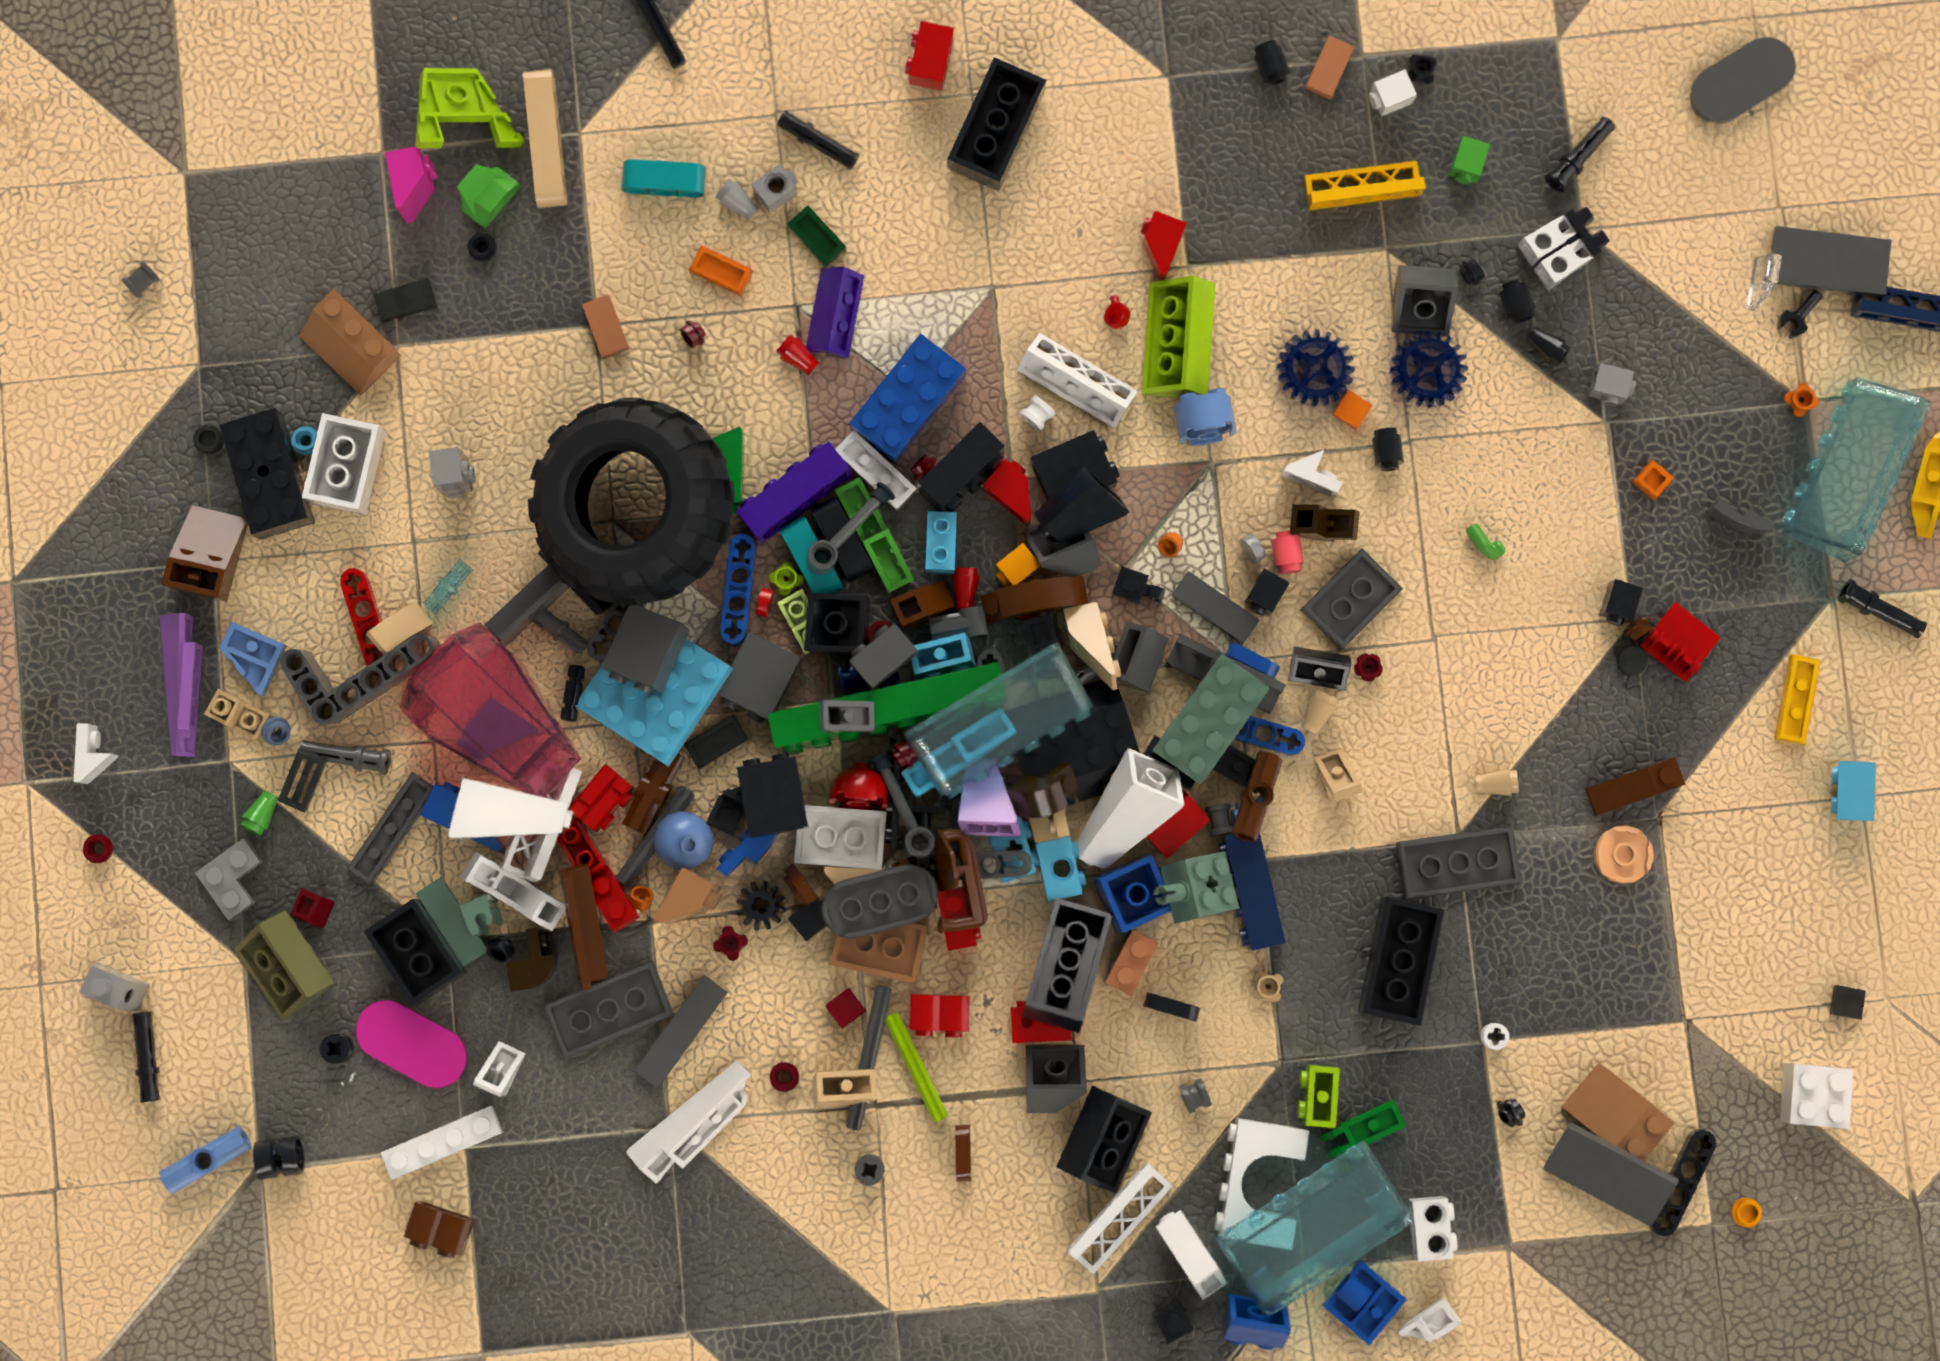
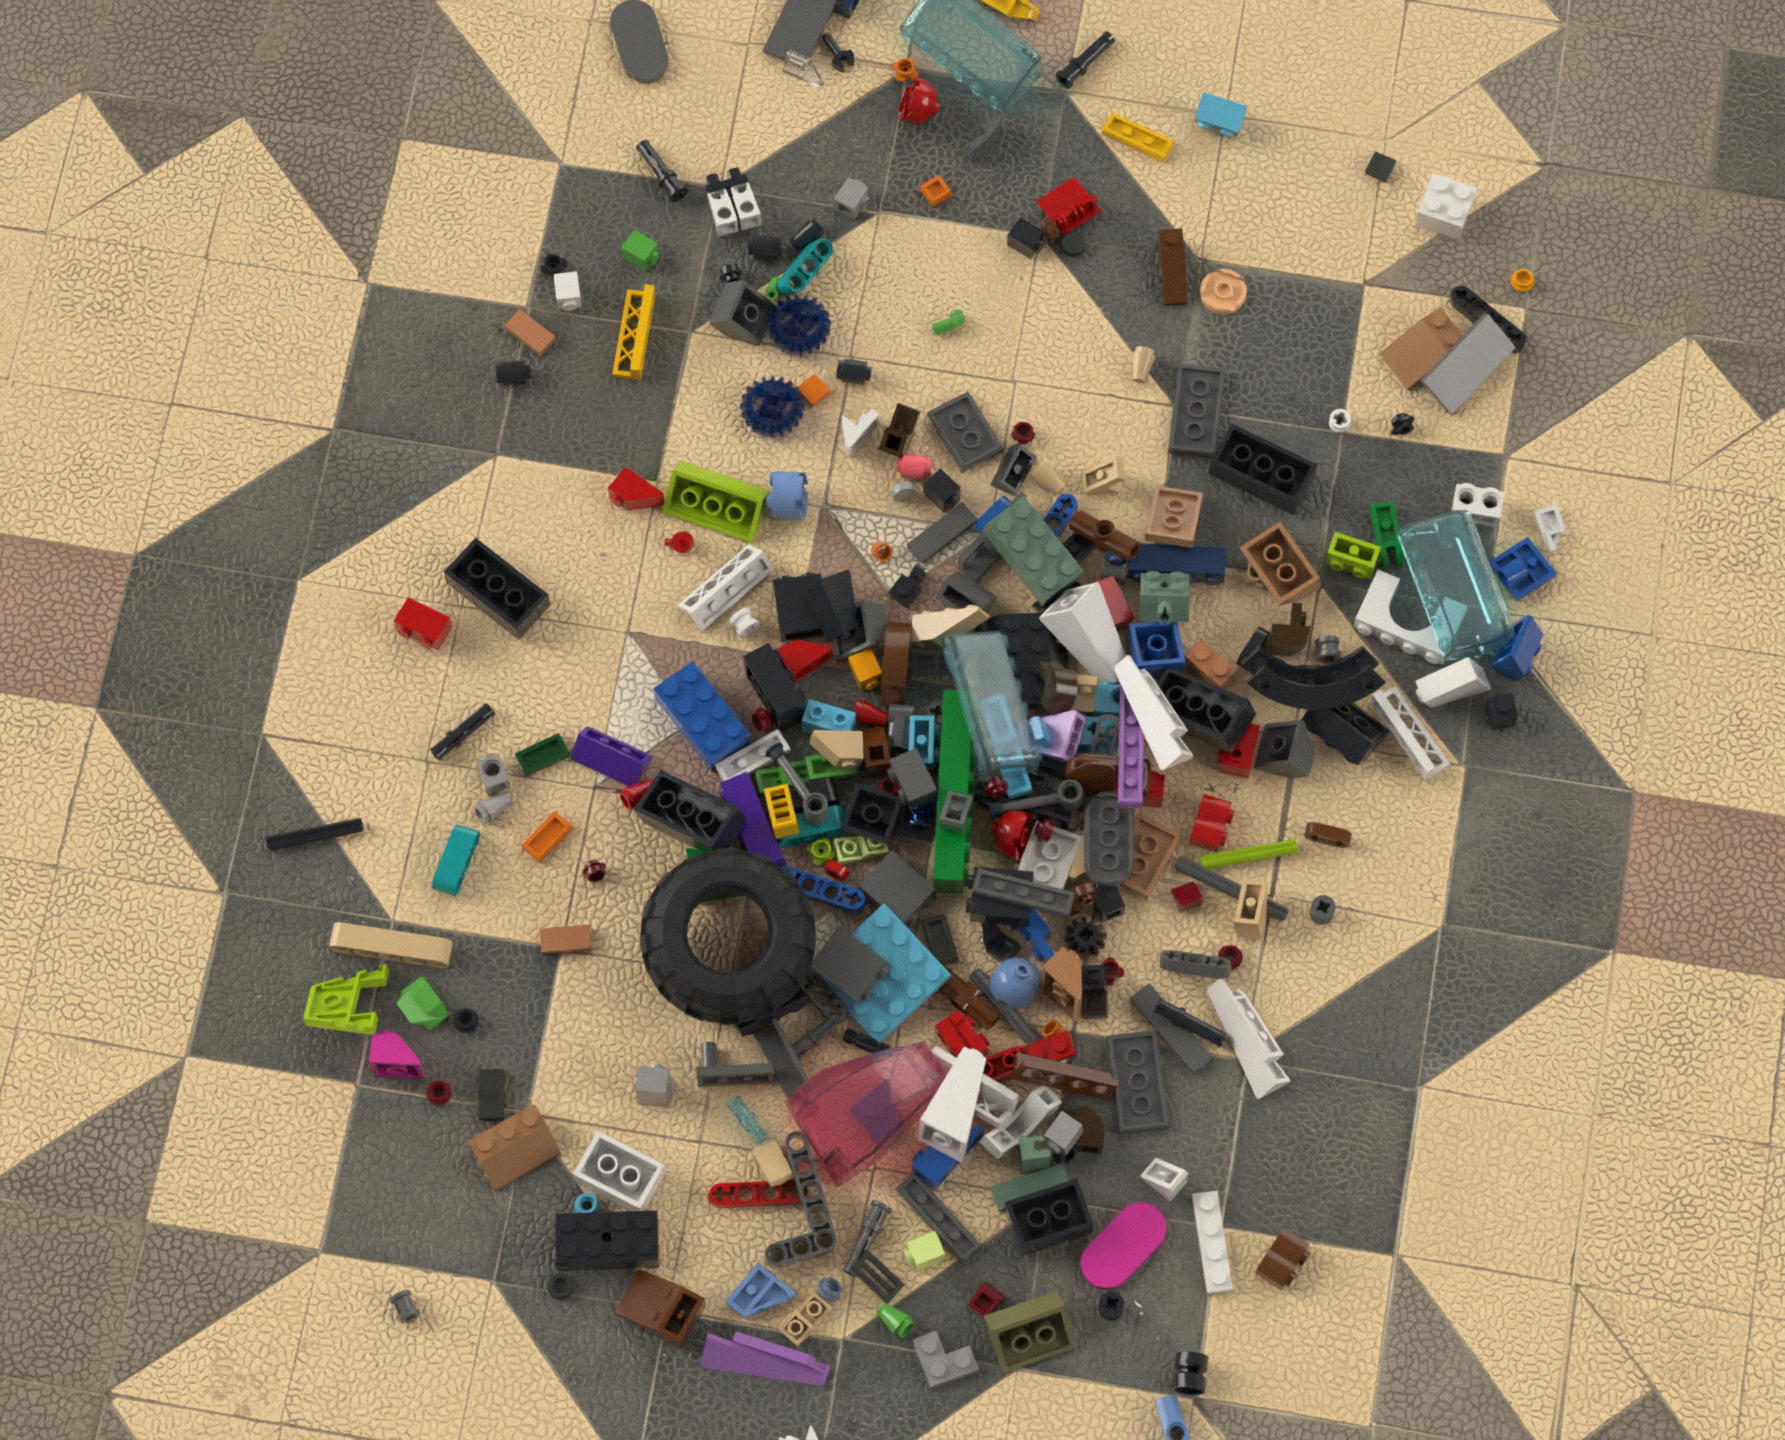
camera: 70 degrees left, 15 degrees down
(345, 824) = (924, 1251): none -> yellowish green brick
(388, 235) = (435, 1086): none -> dark red plate
(487, 532) = (727, 1075): none -> dark grey piece
(506, 943) = (1063, 1134): none -> light grey brick
(690, 1041) = (1181, 1017): none -> black pin
(698, 933) = (1094, 992): none -> black slope
(753, 1049) = (1195, 964): none -> dark grey beam
(775, 820) = (1023, 893): none -> dark grey tile
(777, 419) = (689, 814): none -> black brick
(807, 533) = (786, 825): none -> yellow slope
(871, 824) = (1044, 830): none -> dark red plate
(906, 565) = (839, 747): none -> tan slope
(980, 788) = (1041, 731): none -> dark azure tile
(997, 897) = (1130, 757): none -> medium lavender tile
(1039, 915) = (1155, 715): none -> white wedge
(1151, 1083) = (1314, 685): none -> black fence
(1195, 1049) = (1292, 638): none -> dark brown brick
(1281, 1013) = (1281, 565): none -> medium nougat slope
(1308, 871) = (1173, 516): none -> medium nougat plate
(1471, 327) = (772, 290): none -> bright green arm
(1512, 365) = (812, 260): none -> teal beam
(1760, 427) = (918, 102): none -> red cylinder

